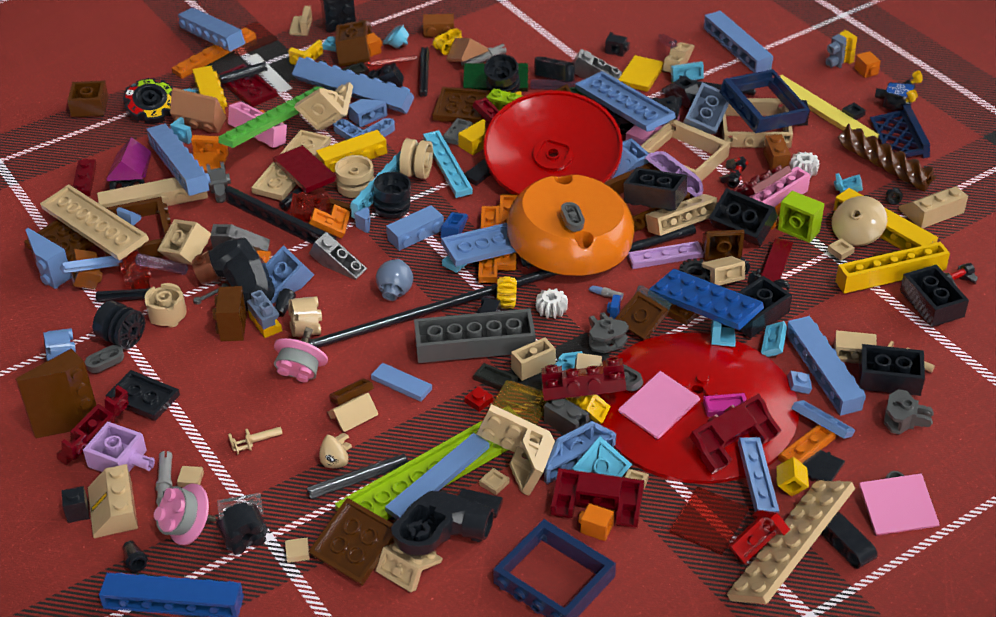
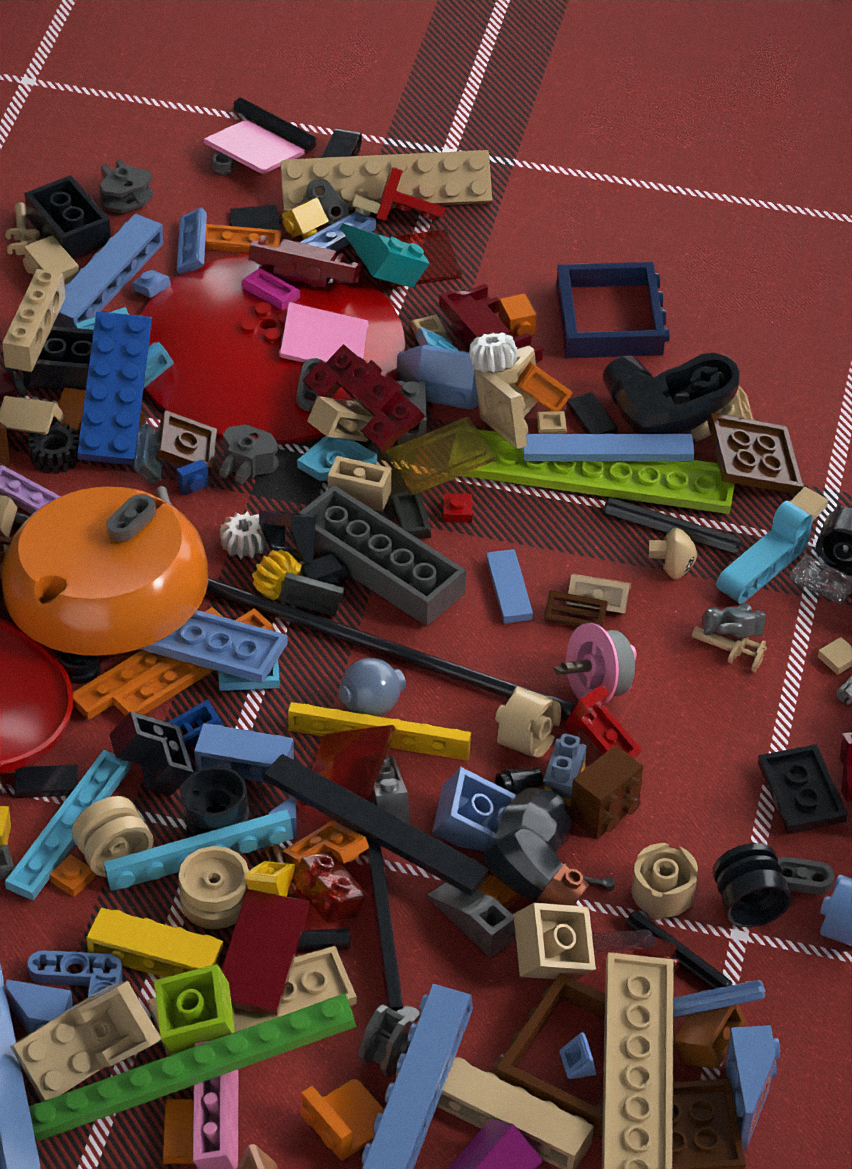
camera: 135 degrees left, 5 degrees up
(260, 439) = (734, 621): none -> dark grey animal
(264, 343) = (600, 724): none -> red bracket
(283, 493) = (769, 555): none -> medium azure beam
(297, 128) = (193, 1008): none -> lime brick
(317, 228) = (376, 824): none -> black tile
(333, 185) = (270, 877): none -> yellow slope
(362, 249) = (354, 758): none -> clear red piece
(365, 277) = (407, 736): none -> yellow plate
(450, 196) = (155, 747): none -> black brick
(474, 300) = (310, 594): none -> pearl dark grey tile
(513, 475) = (543, 388): none -> orange tile
(523, 297) = (300, 527): none -> black tile
(543, 433) = (493, 352): none -> white gear
(716, 482) = (387, 256): none -> teal slope
(777, 505) = (365, 205): none -> tan plate
(785, 283) = (34, 320): none -> tan brick
(803, 493) = (328, 200): none -> dark grey plate
(920, 534) = (275, 123): none -> black axle

